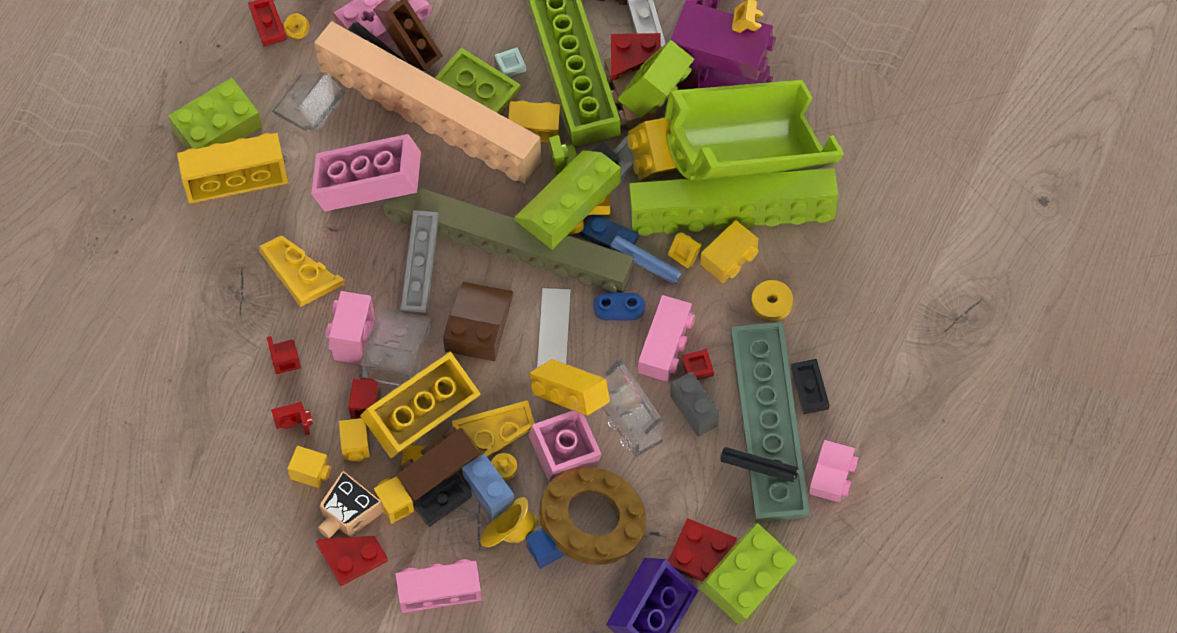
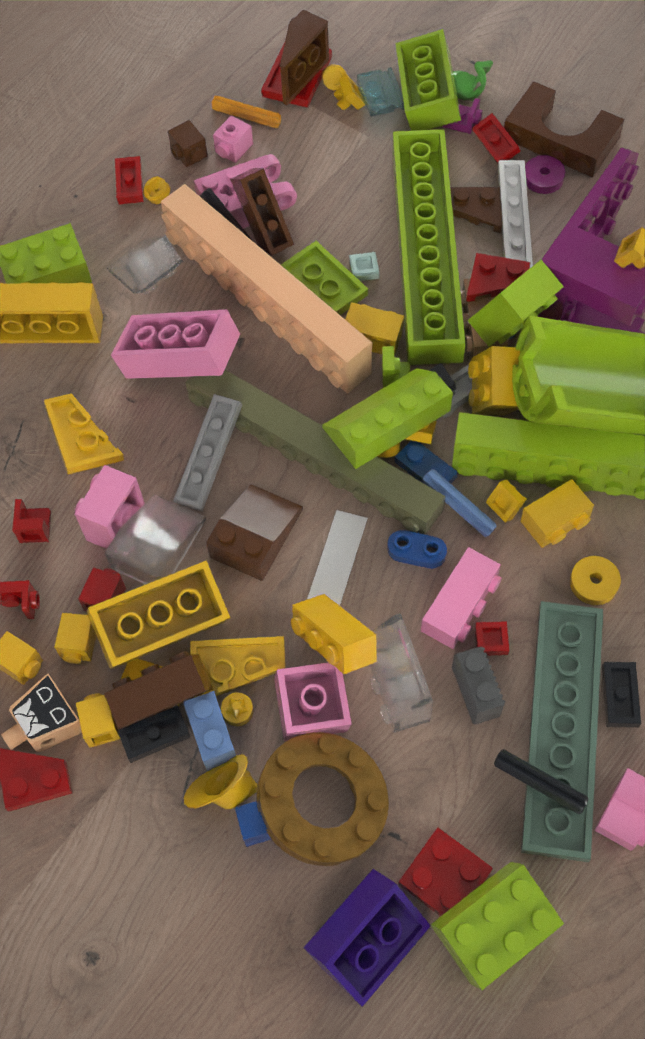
camera: 15 degrees right, 0 degrees up
(438, 586) = (117, 842): bright pink brick -> none

